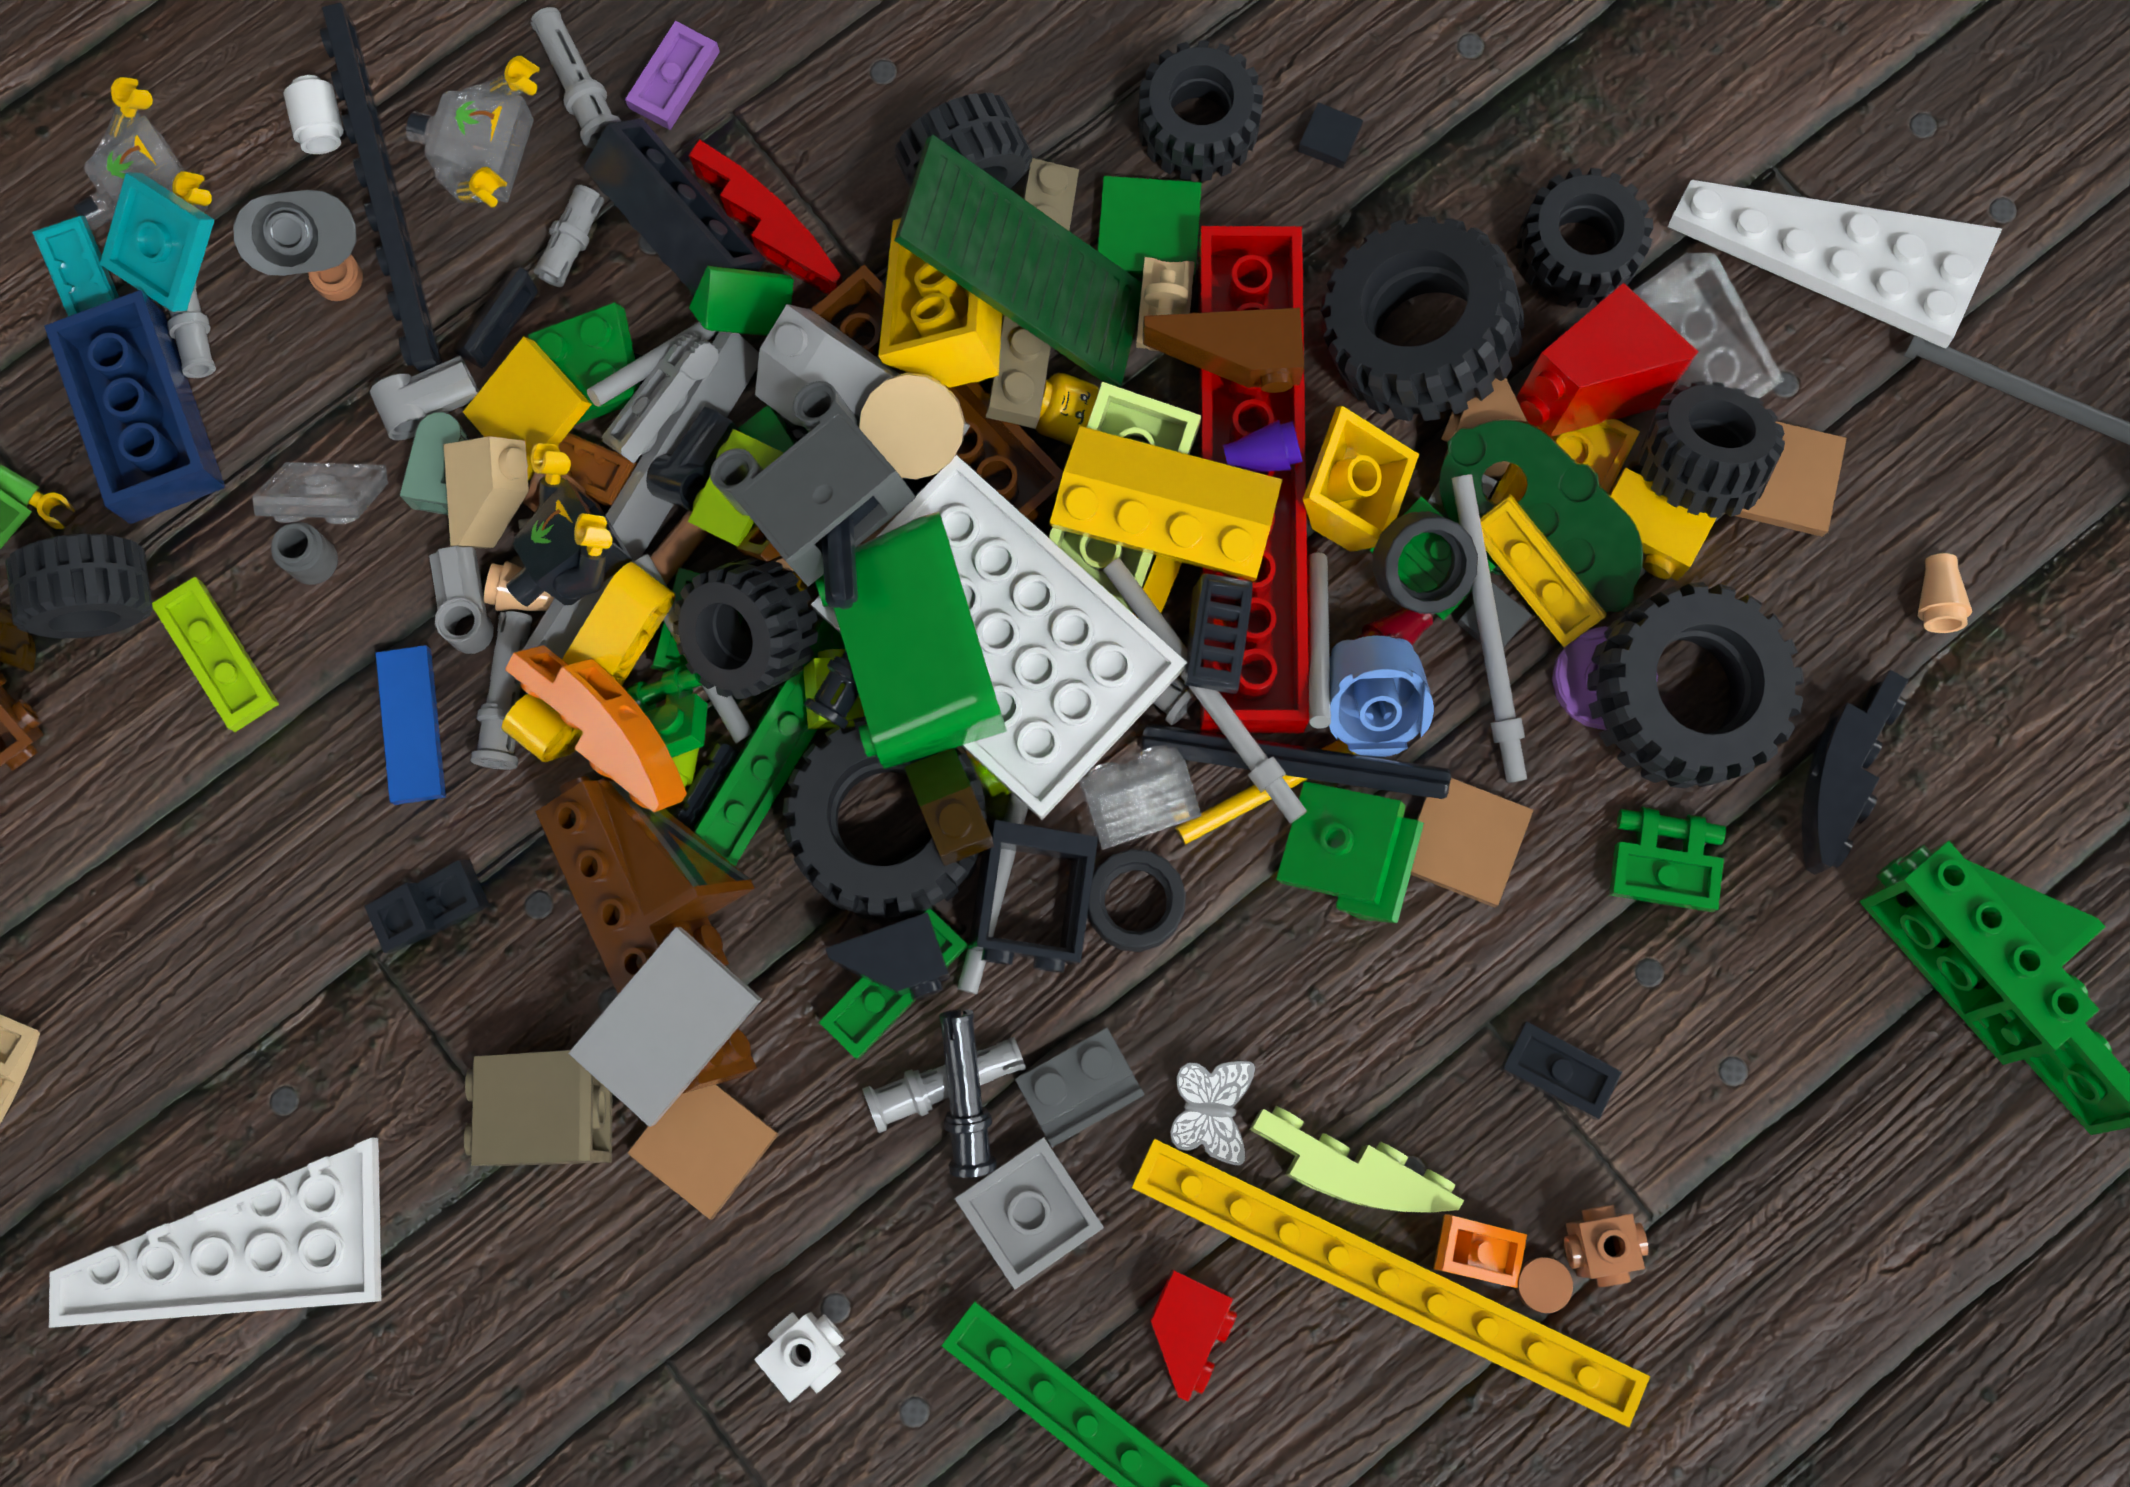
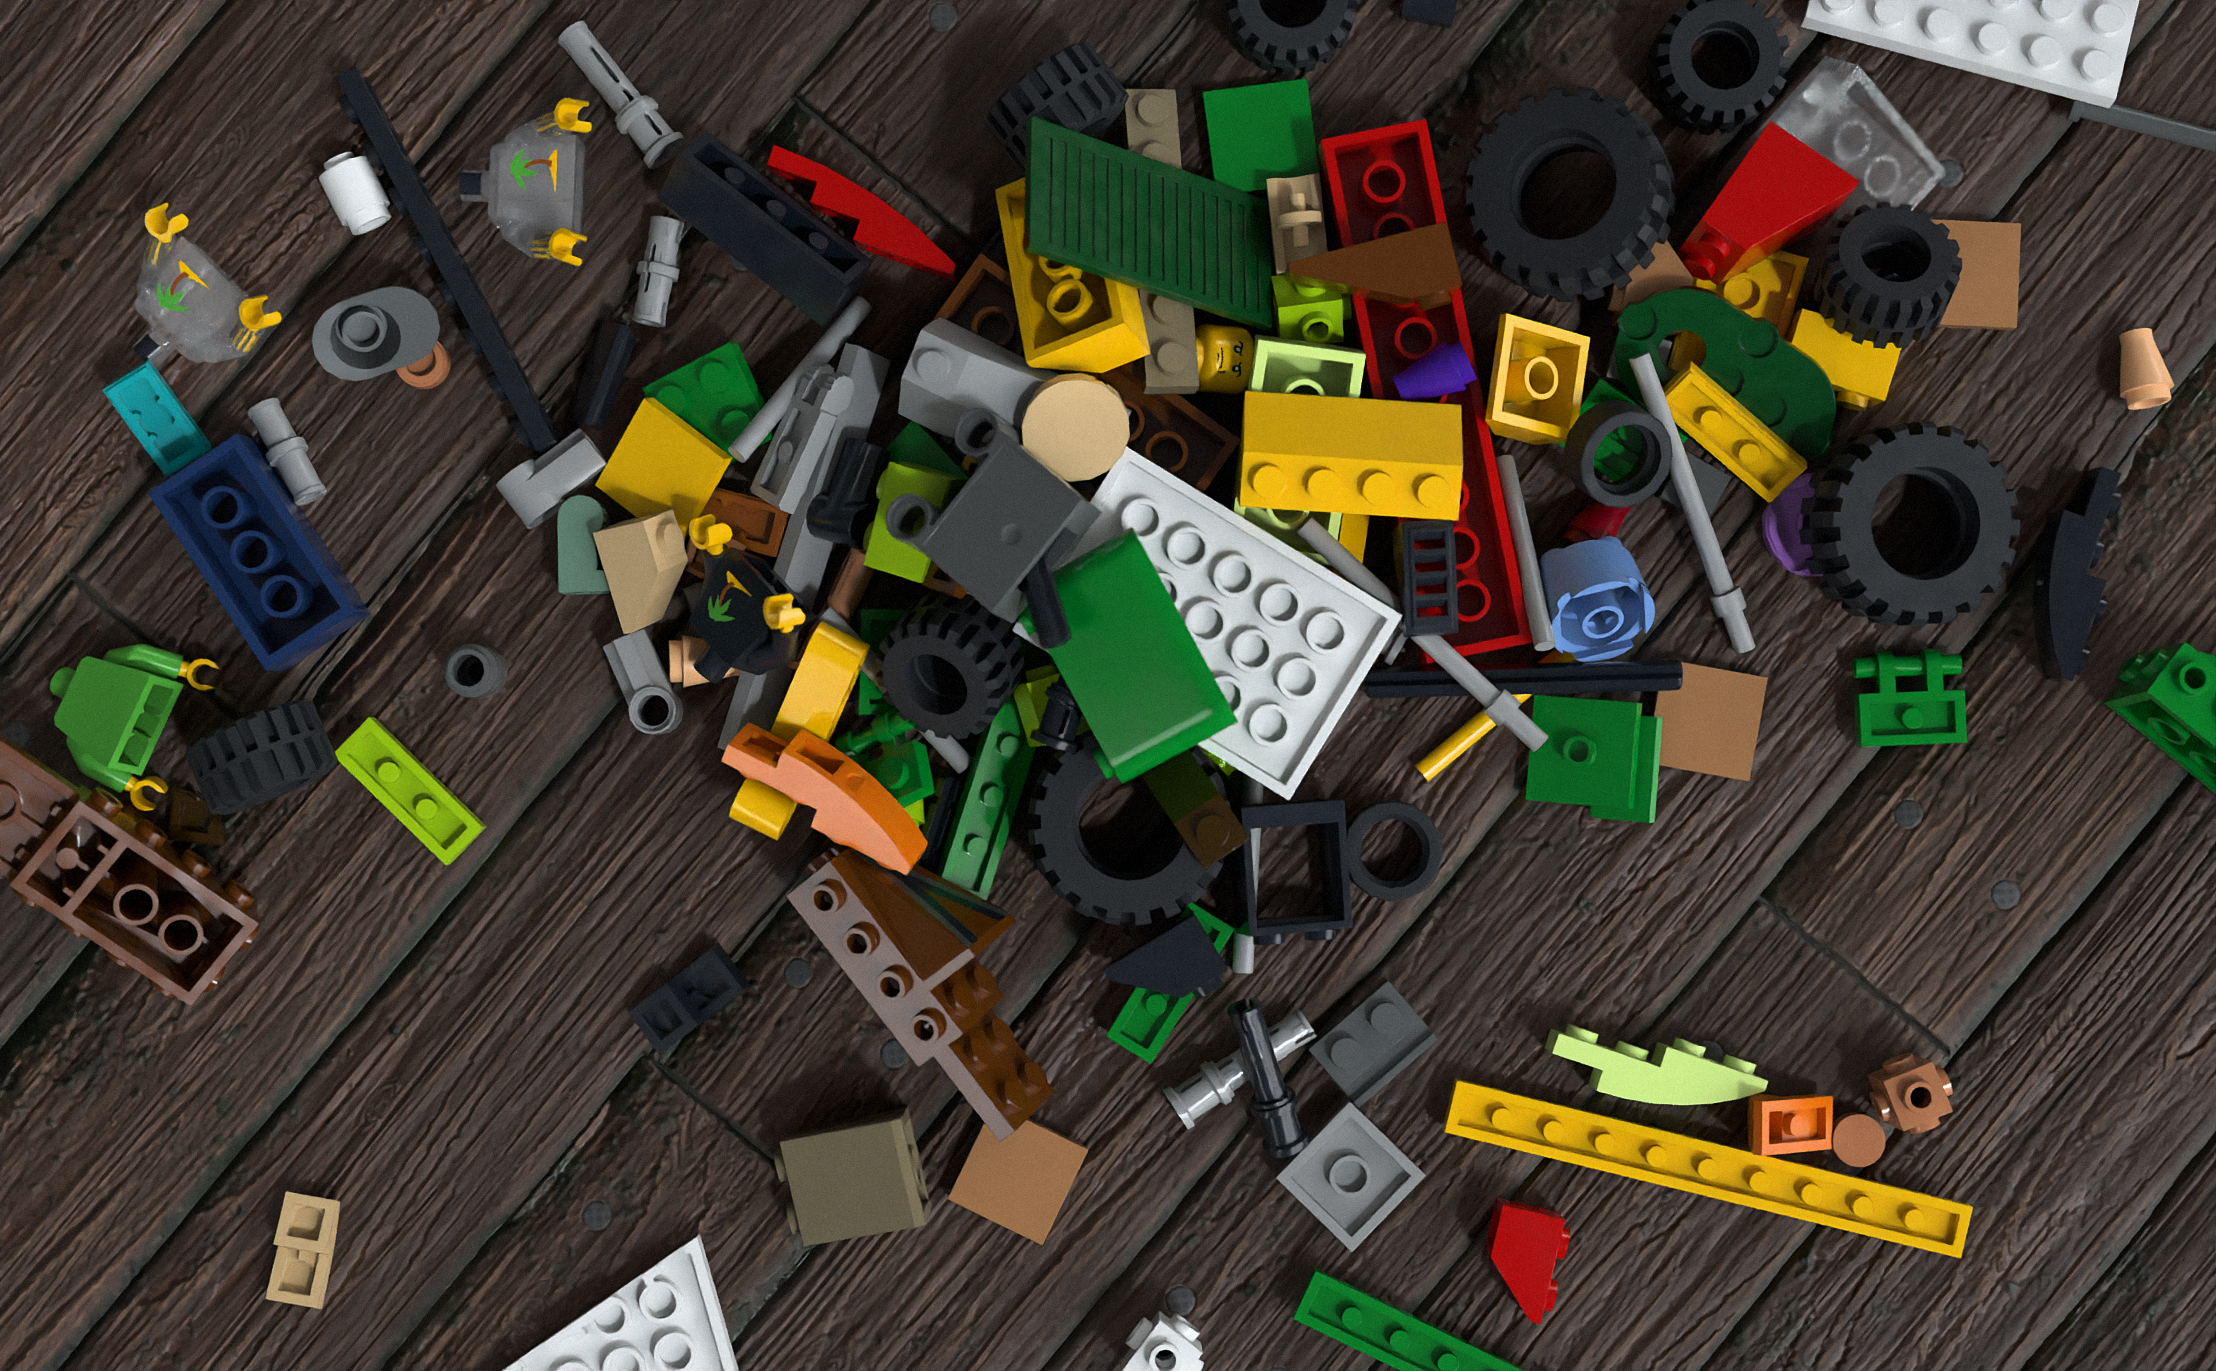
camera: 15 degrees left, 10 degrees up
(156, 241) = (238, 377): teal plate -> none
(320, 490) = (476, 604): clear plate -> none
(410, 725) = (625, 820): blue tile -> none
(495, 746) = (714, 791): light grey pin -> none
(665, 1026) = (970, 1085): light grey tile -> none
(672, 75) = (723, 70): medium lavender plate -> none
(741, 300) = (863, 316): green slope -> none
(1139, 796) = (1376, 748): clear brick -> none
(1162, 377) = (1309, 312): none -> lime brick
(1210, 1109) = (1506, 1041): animal -> none
(1561, 1070) = (1838, 931): black plate -> none

